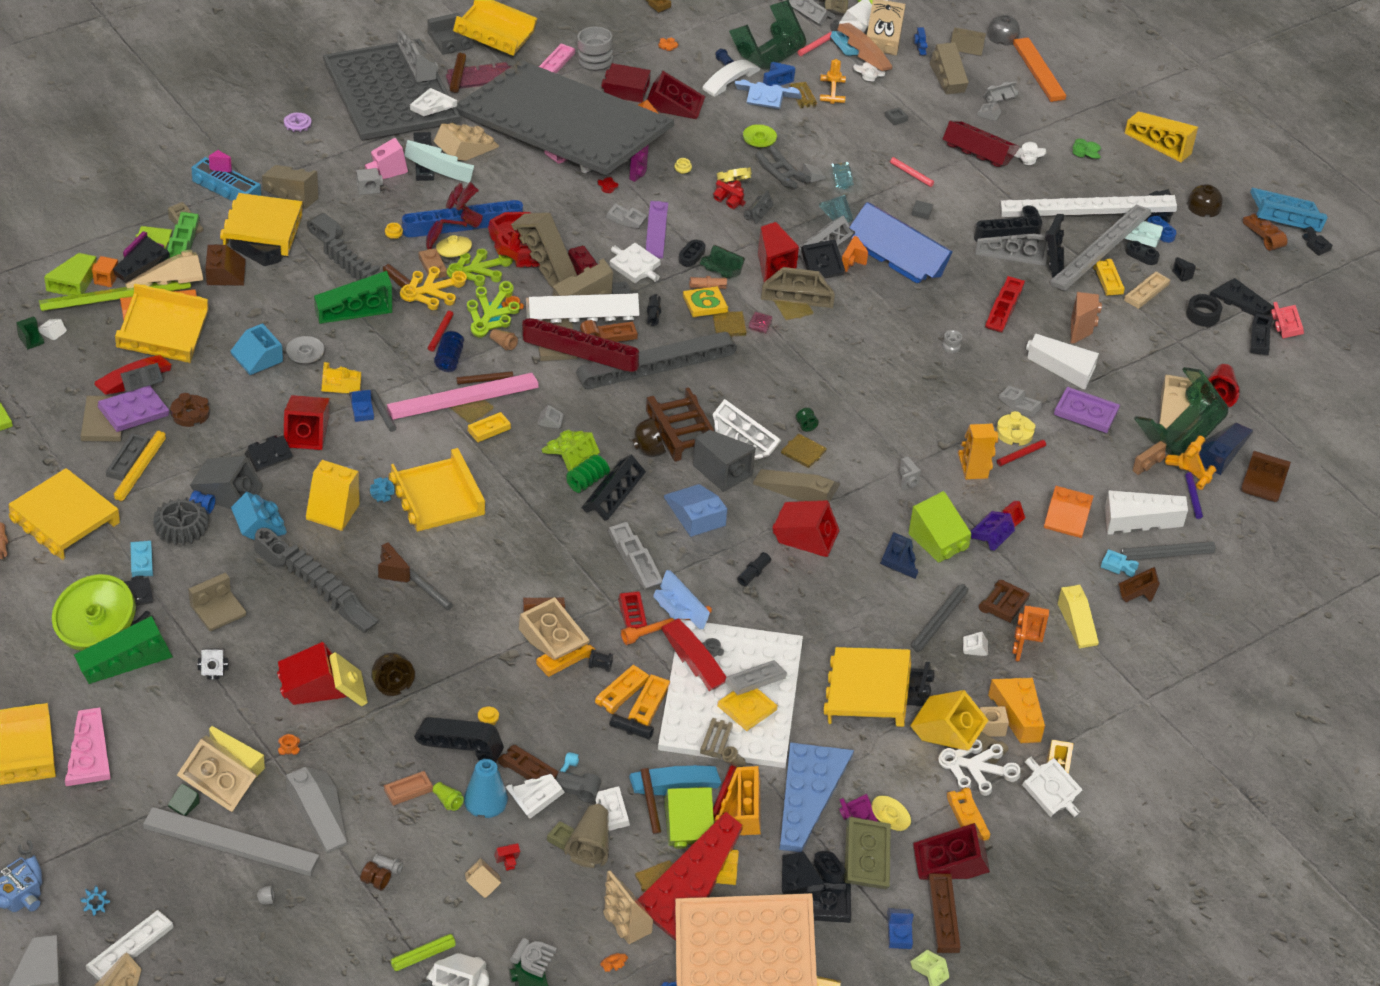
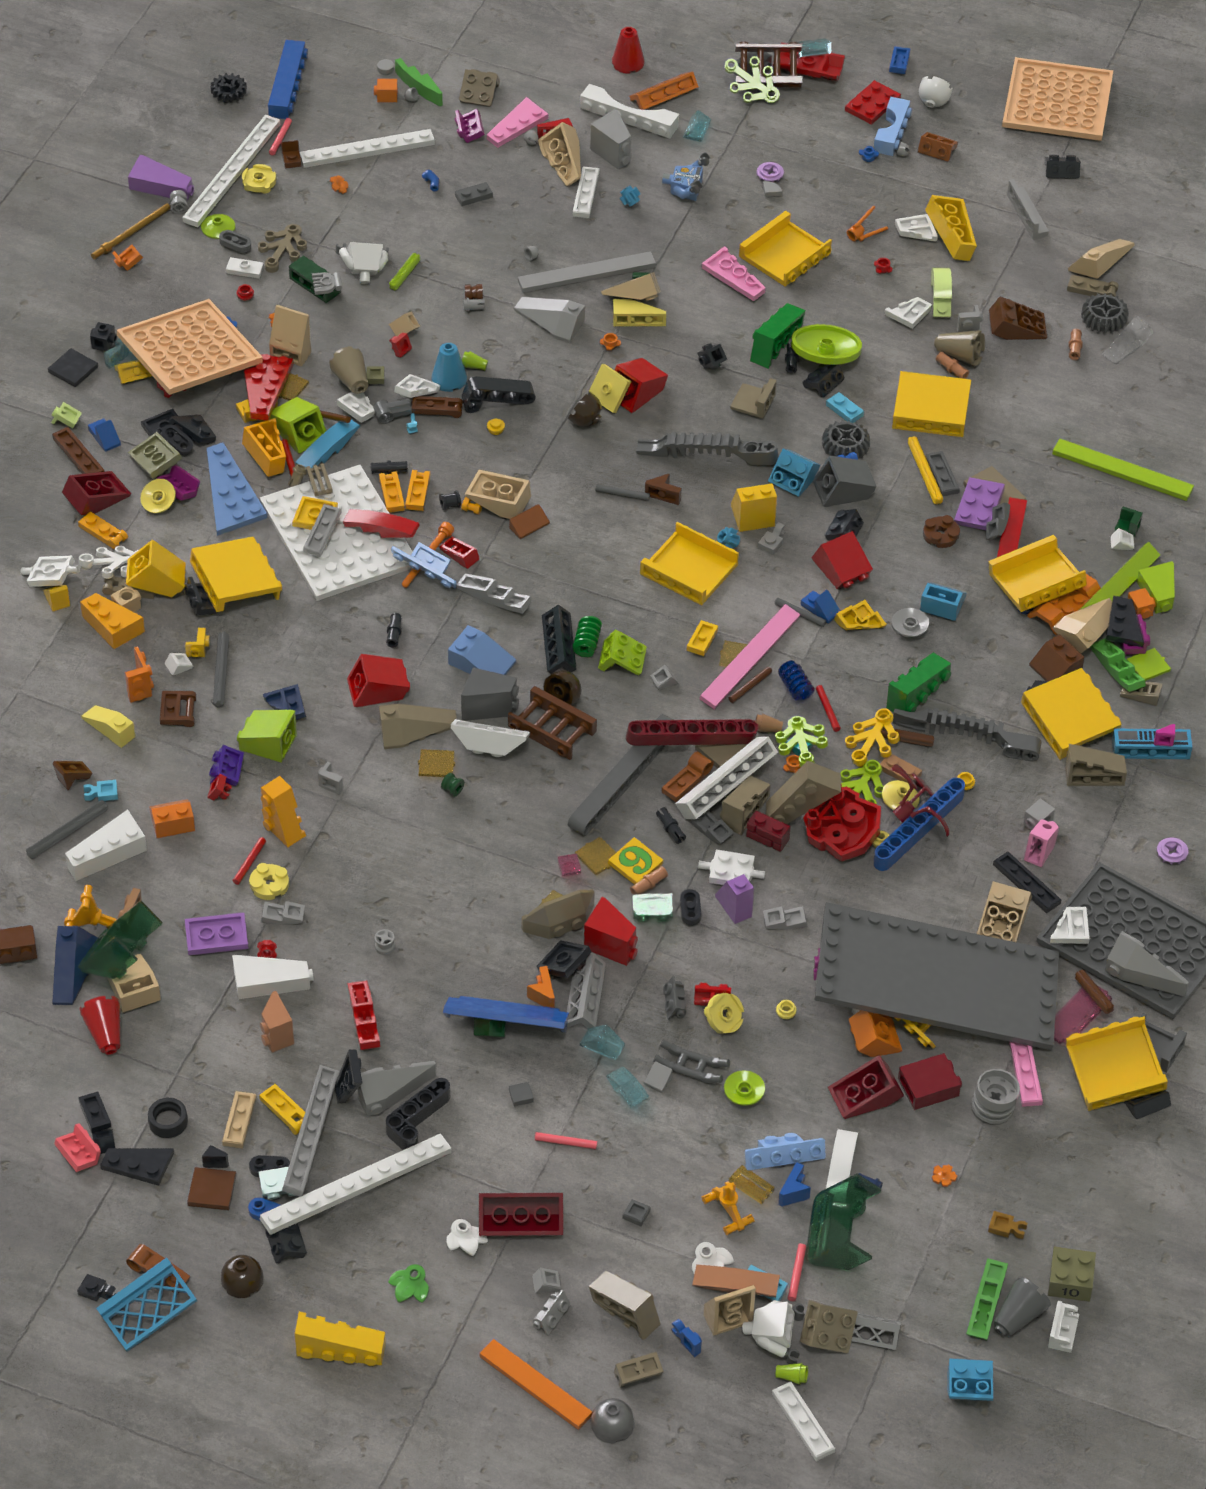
camera: 150 degrees right, 5 degrees up
(408, 788) = (506, 357): nougat tile -> none
(438, 162) = (1004, 863): light aqua slope -> none
(714, 647) = (373, 539): dark grey plate -> none
(948, 641) = (198, 648): none -> yellow bracket
(1052, 378) = (267, 945): none -> red plate
(1194, 495) = (67, 893): dark purple bar -> none
(1200, 257) = (211, 1188): none -> reddish brown tile

